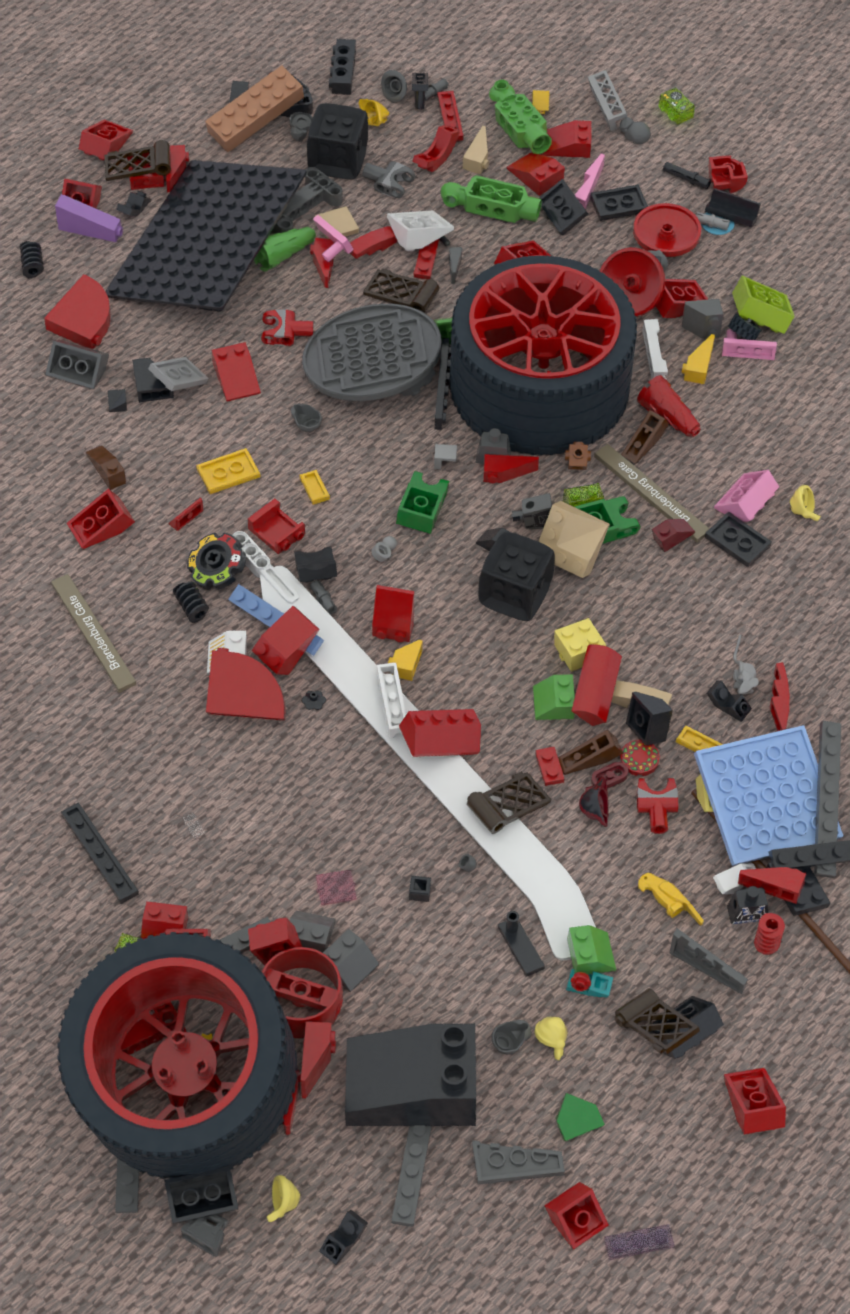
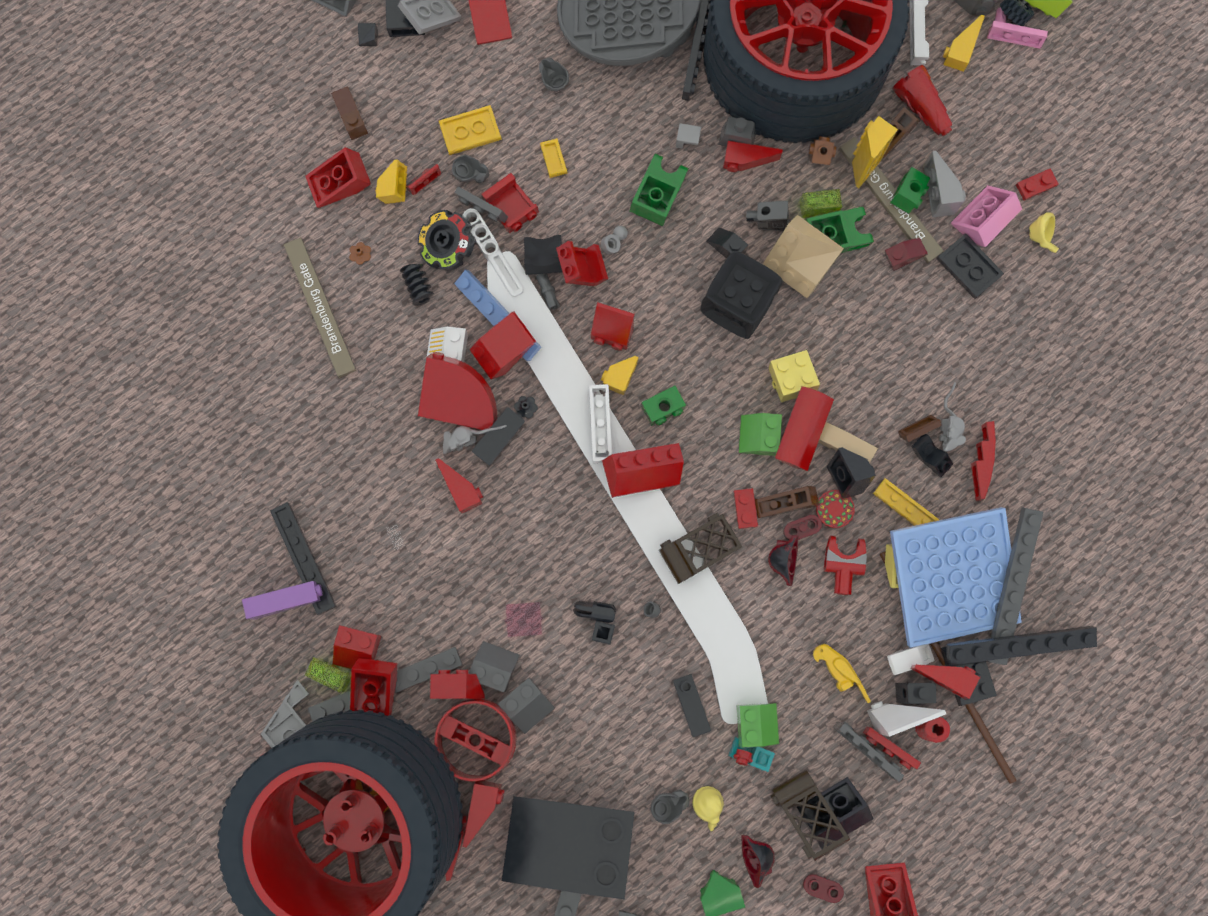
camera: 10 degrees right, 25 degrees up
(82, 886) = (281, 600): none -> medium lavender slope
(129, 584) = (362, 256): none -> dark orange plant
(156, 519) = (392, 183): none -> yellow slope
(231, 501) = (469, 169): none -> dark grey hair
(252, 529) = (480, 205): none -> dark grey plate
(253, 728) = (462, 437): none -> light grey animal
(255, 772) = (462, 490): none -> red slope
(290, 722) = (495, 441): none -> black panel
(356, 570) = (582, 265): none -> red panel
(413, 867) = (595, 611): none -> black arm
(443, 683) = (671, 398): none -> green brick
(609, 1075) = (757, 858): none -> dark red hat
(624, 442) = (871, 148): none -> yellow slope
(669, 480) = (910, 190): none -> green brick
(683, 1101) = (823, 889): none -> dark red plate
(699, 474) = (944, 188): none -> light grey slope
(712, 678) = (919, 428): none -> reddish brown tile
(736, 925) = (893, 718): none -> white slope
(741, 964) = (891, 749): none -> red plate
(791, 468) = (1037, 184): none -> red plate

